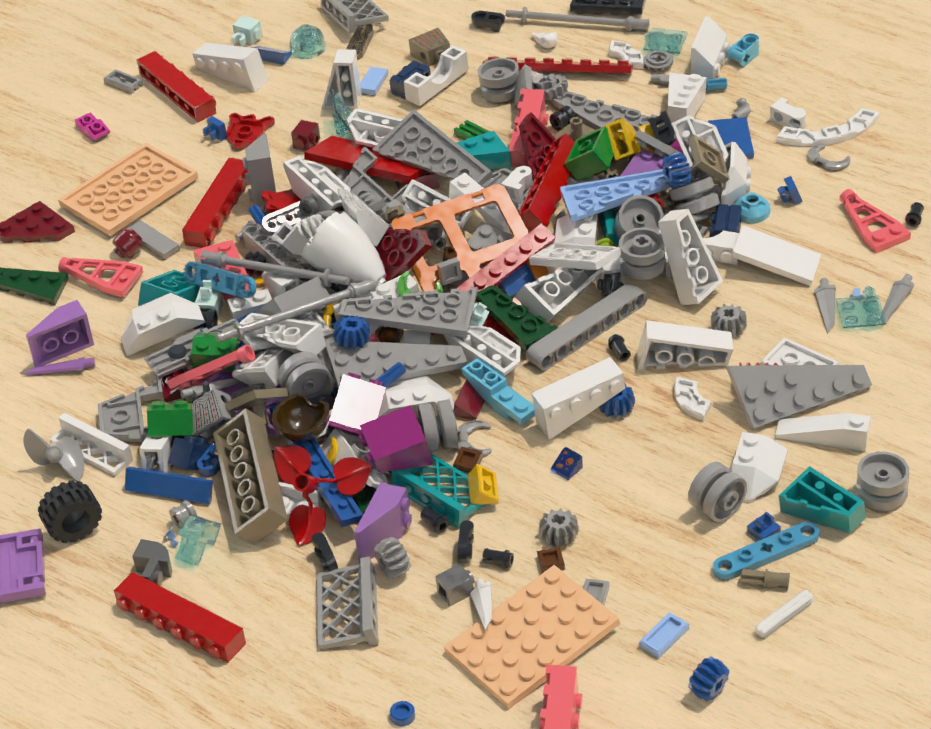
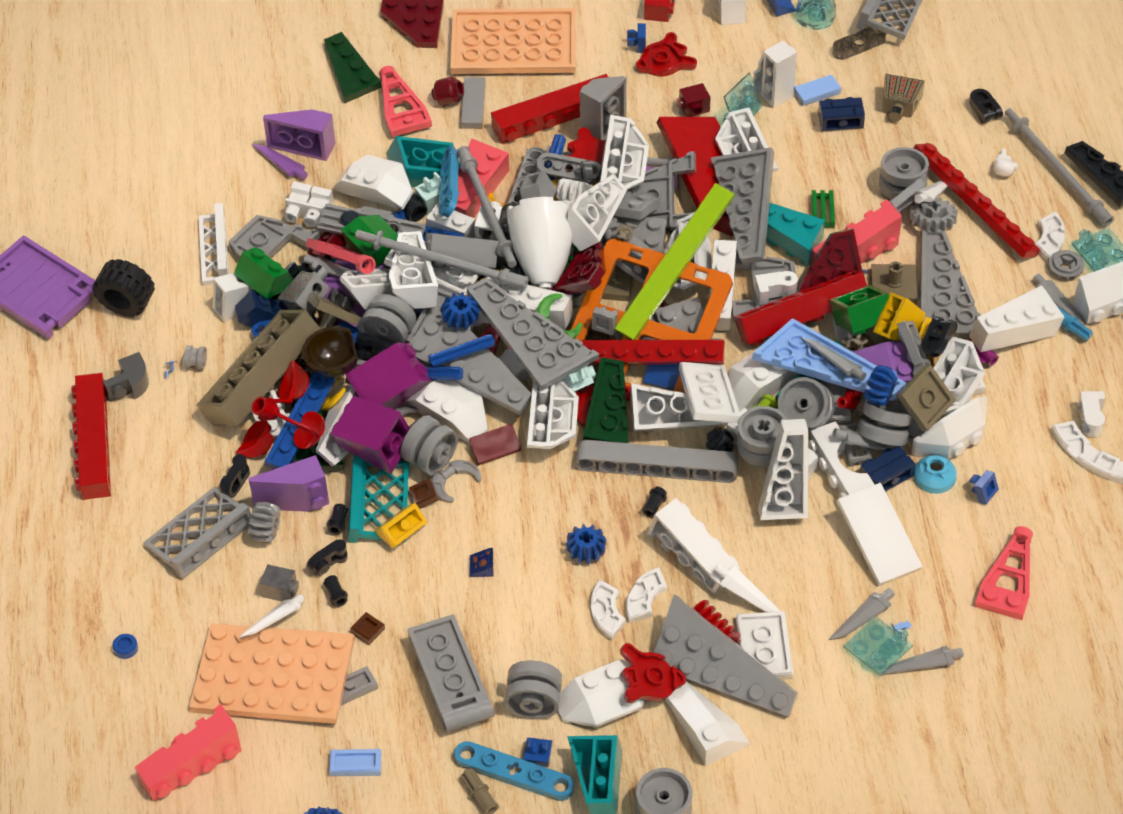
camera: 45 degrees right, 10 degrees up
(65, 452) = (186, 234): light grey piece -> none
(124, 372) = (307, 203): none -> white hips
(168, 485) = (216, 324): blue tile -> none
(195, 535) = (177, 380): clear light blue brick -> none
(254, 257) = (501, 187): black gear -> none
(384, 353) = (461, 350): none -> blue axle
(451, 65) = (885, 128): white arch -> none
(455, 201) = (674, 262): none -> lime tile
(497, 393) = (513, 458): medium azure slope -> none
(558, 527) = (402, 608): light grey gear -> none
(562, 118) = (906, 253): black wheel -> none
(576, 396) = (547, 513): white wedge -> none
(625, 182) = (844, 364): none -> light grey bar
(648, 533) = (450, 673): none -> light grey hinge
(679, 425) = (605, 611): none -> white tile
(729, 319) = (762, 556): light grey gear -> none
(735, 131) = (1016, 393): blue tile -> none
(743, 109) = (1065, 375): light grey arm -> none
(744, 340) = (740, 585): none -> white bar
(776, 426) = (648, 675): none -> red tile
(814, 157) = (1060, 493): light grey piece -> none
(914, 217) = (1054, 601): black pin -> none

